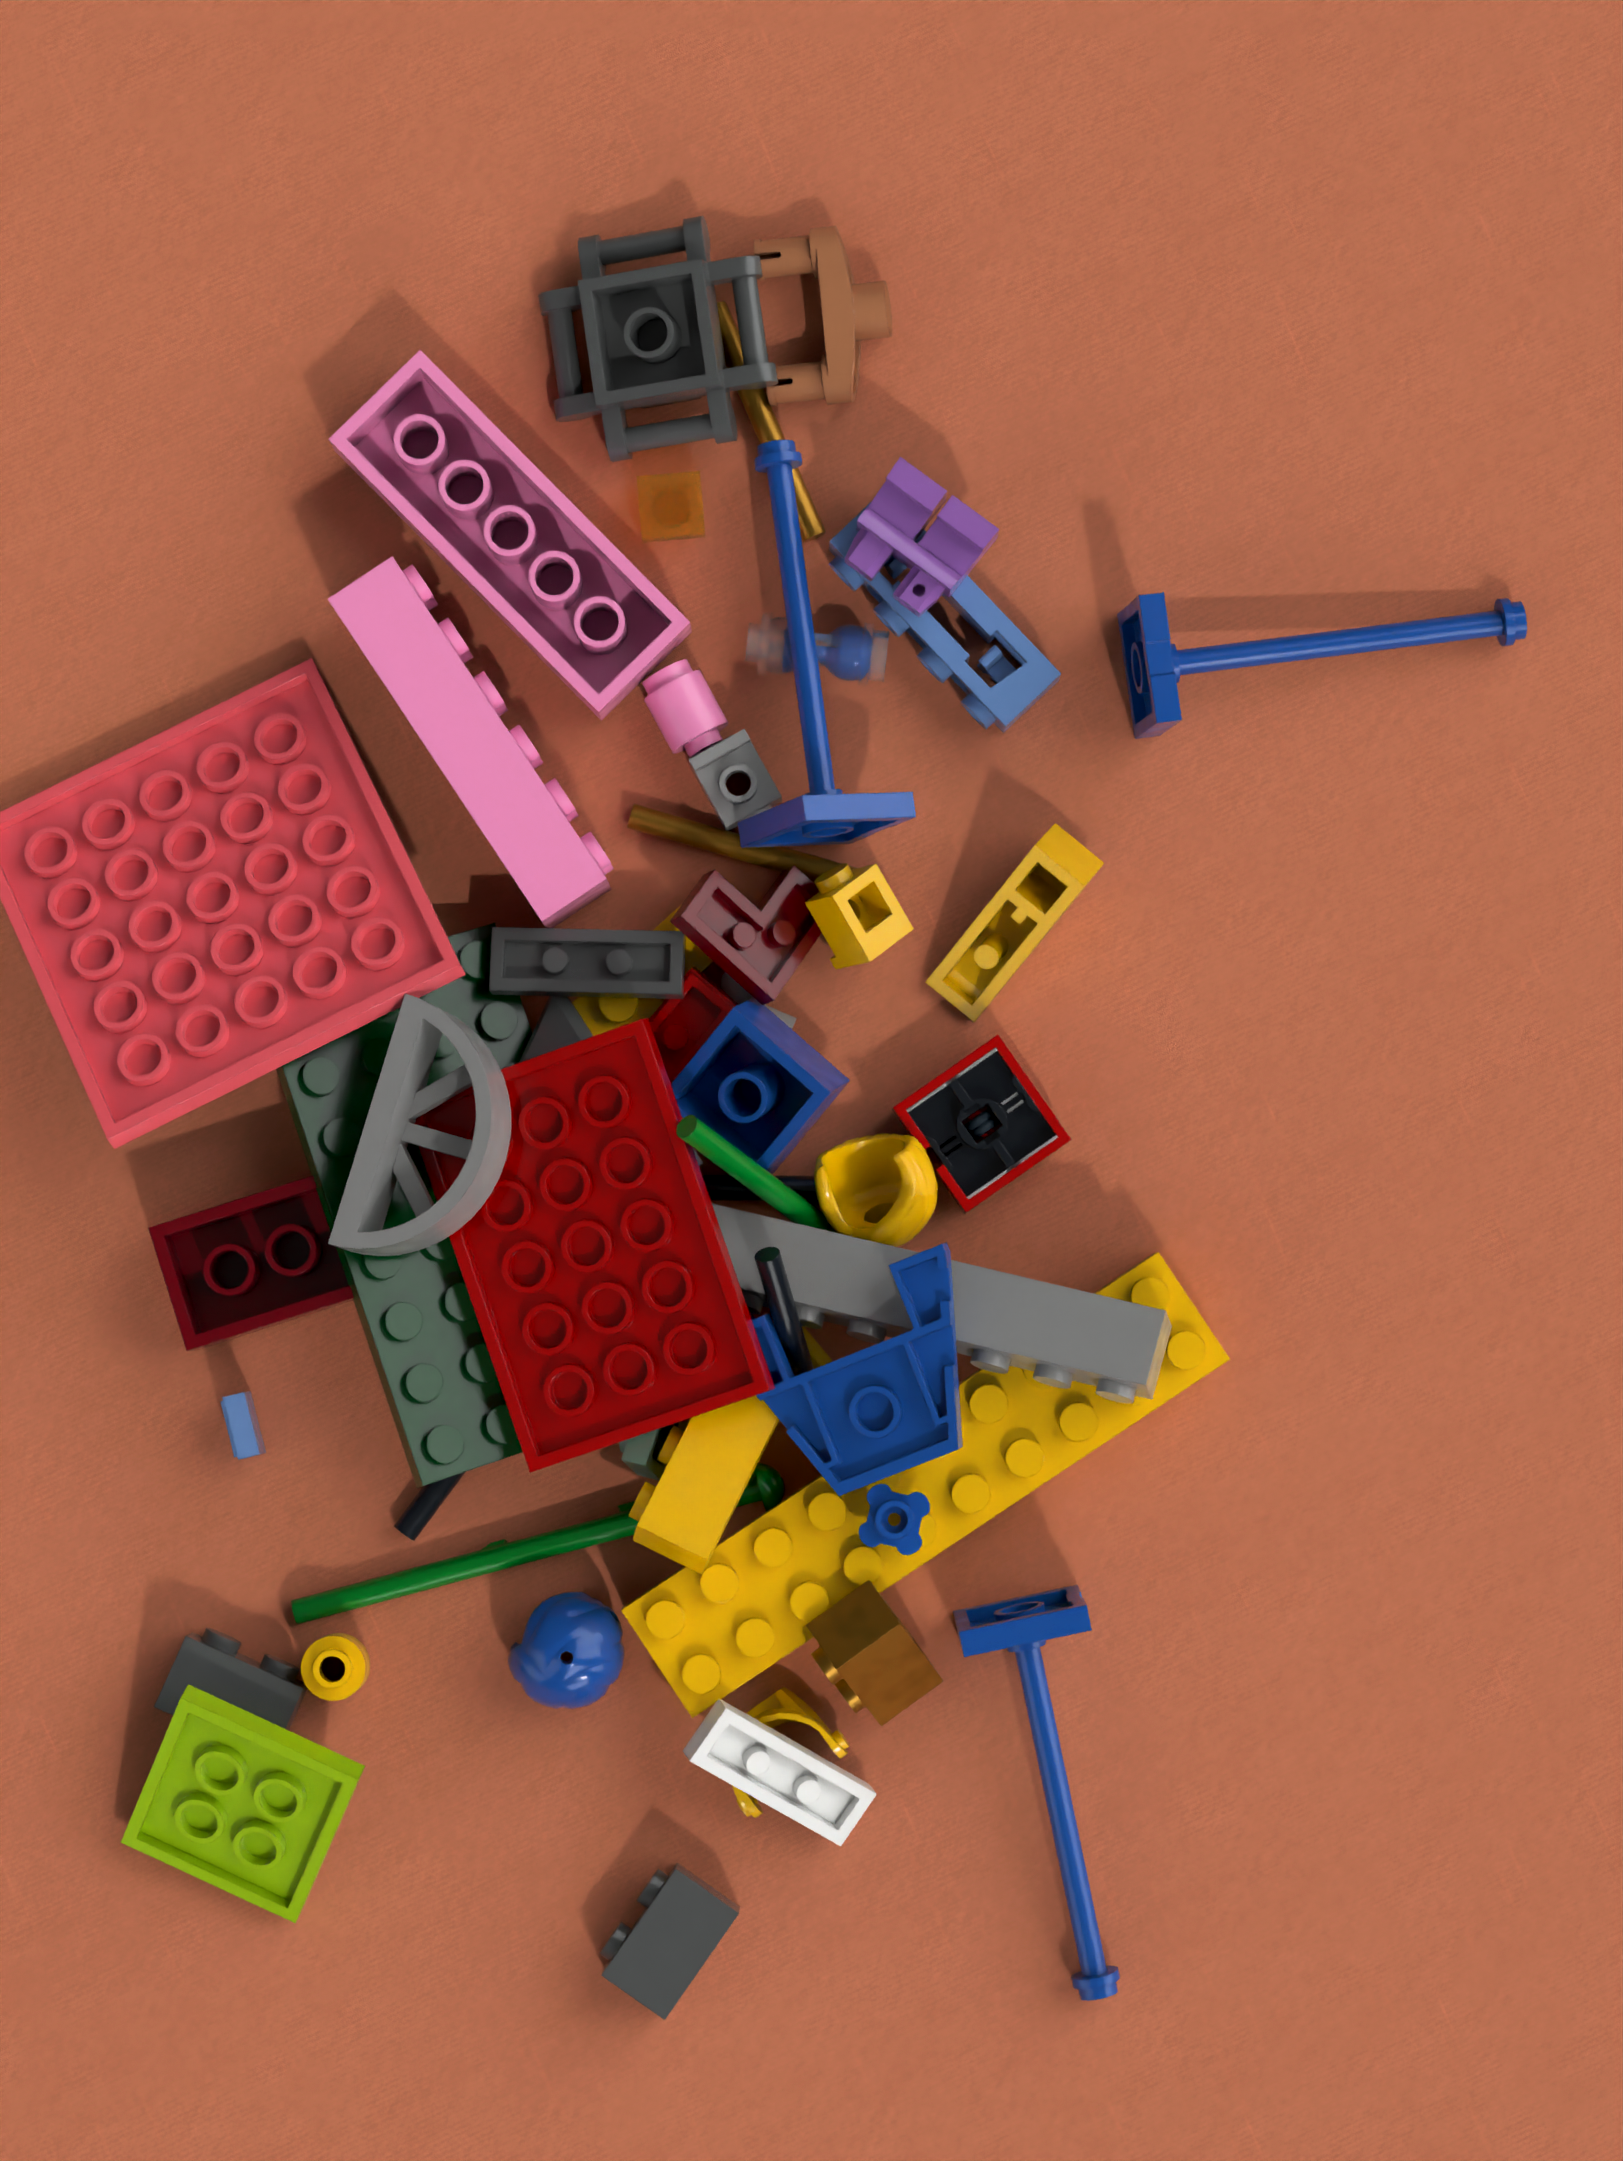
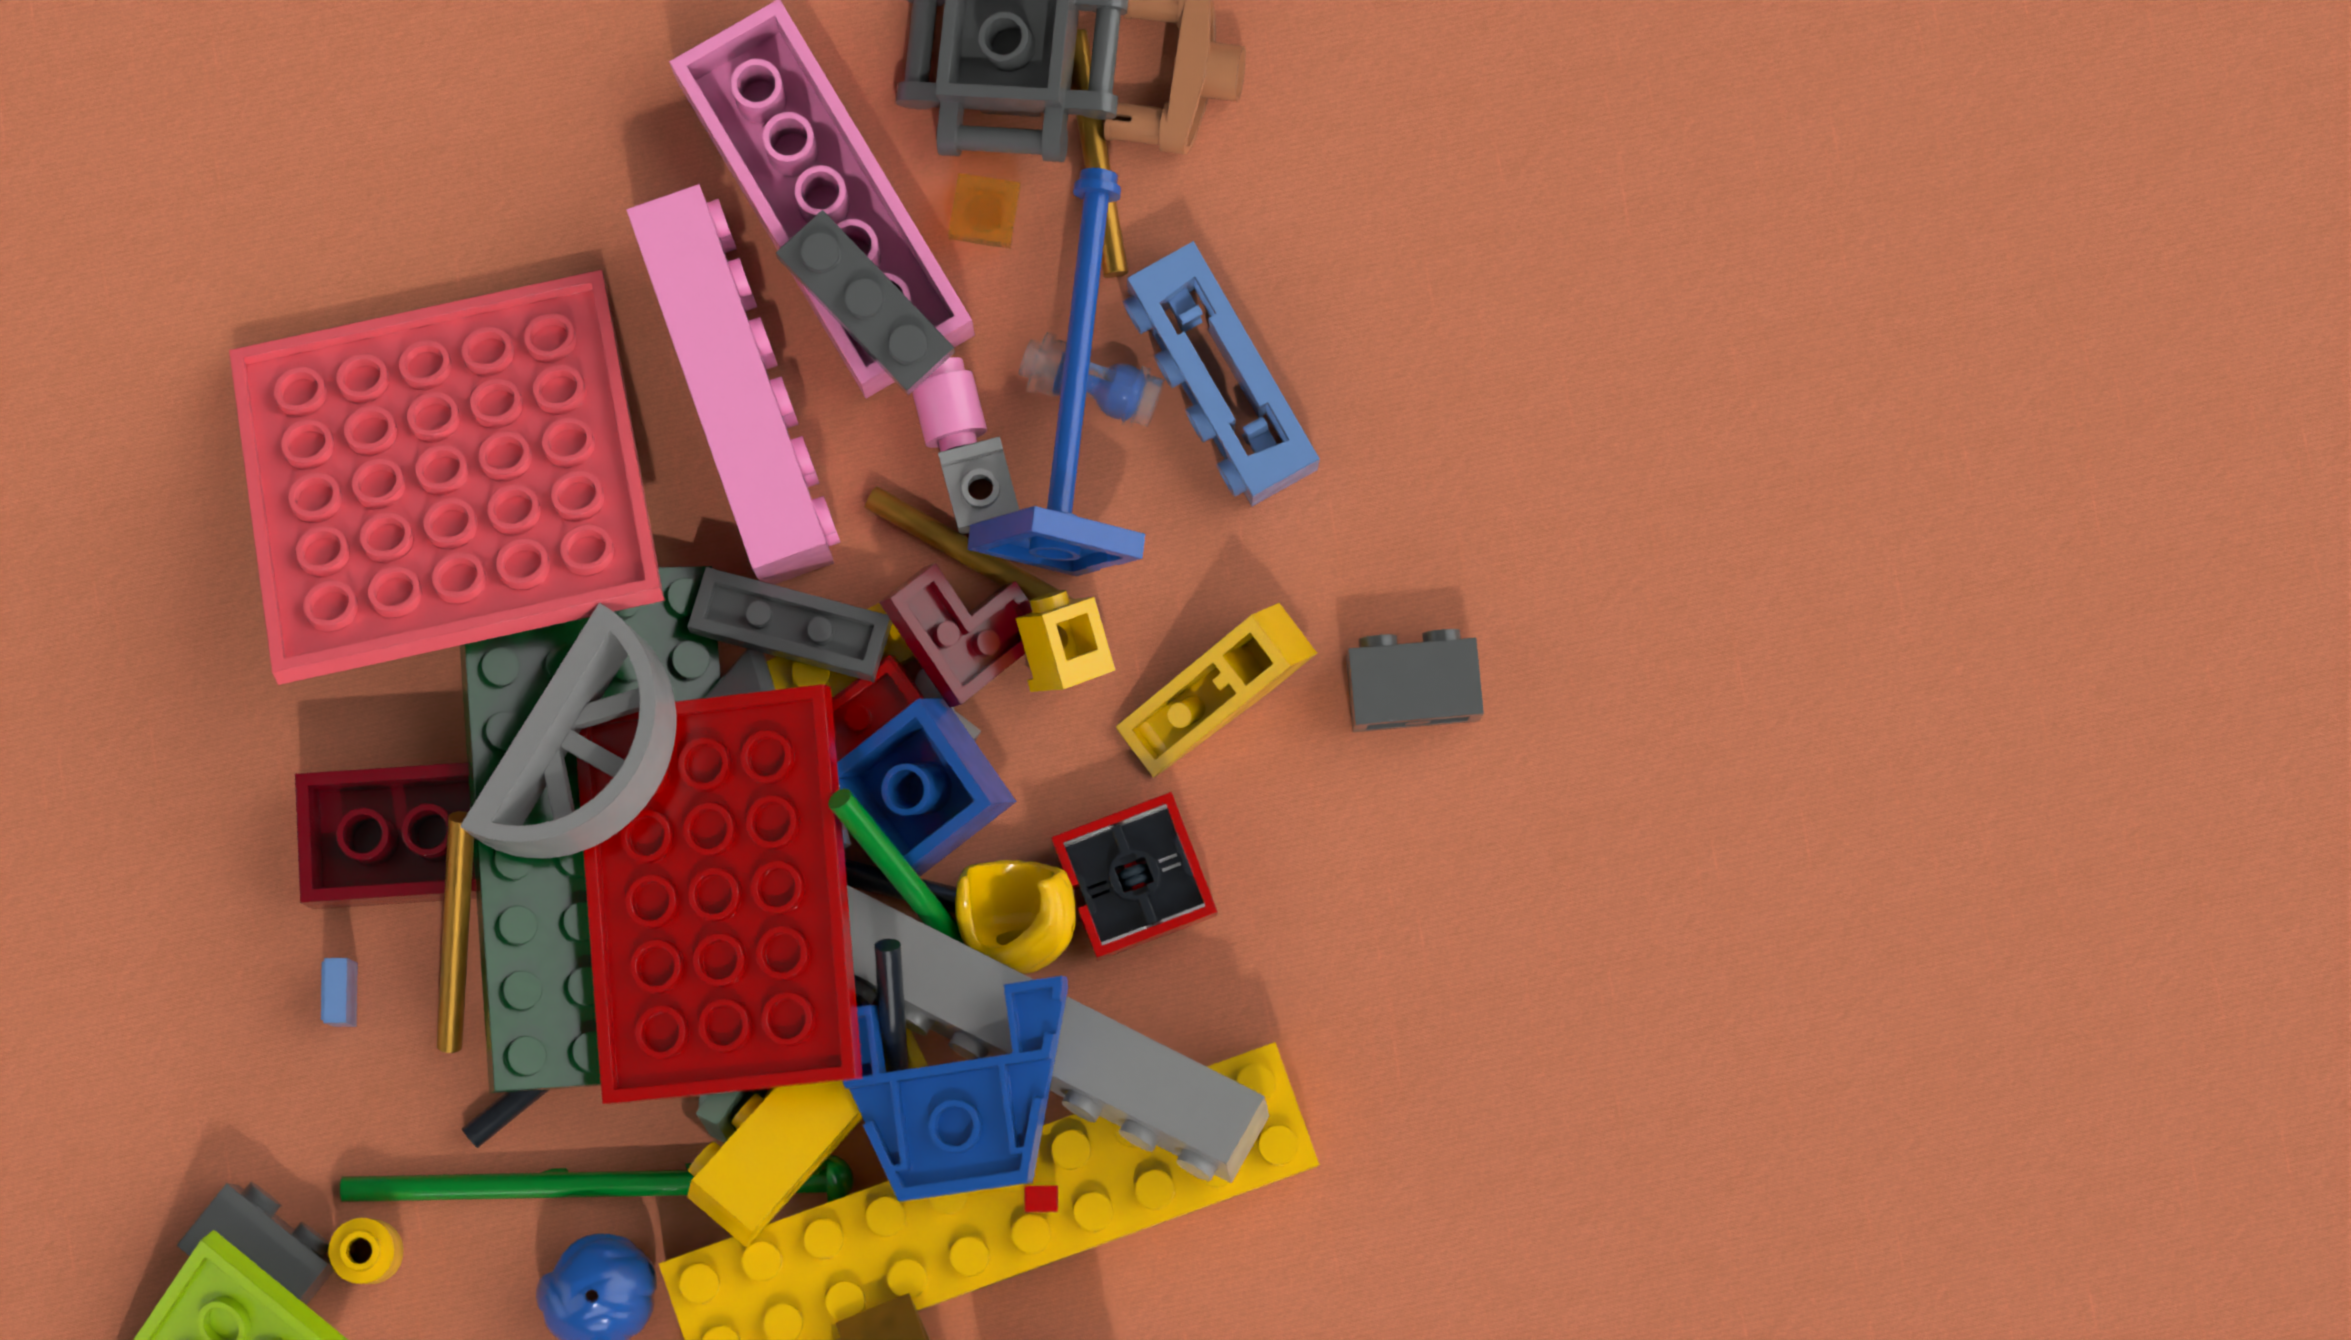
camera: 10 degrees right, 5 degrees down
(343, 1344) = (455, 935): none -> pearl gold bar
(582, 631) = (865, 302): none -> dark grey plate
(897, 520) = (1219, 287): medium lavender hips -> none
(905, 1534) = (943, 1220): blue plate -> none
(973, 1459) = (1041, 1199): none -> red piece
(1156, 665) = (1414, 474): blue tile -> none
(1204, 868) = (1414, 681): none -> dark grey brick

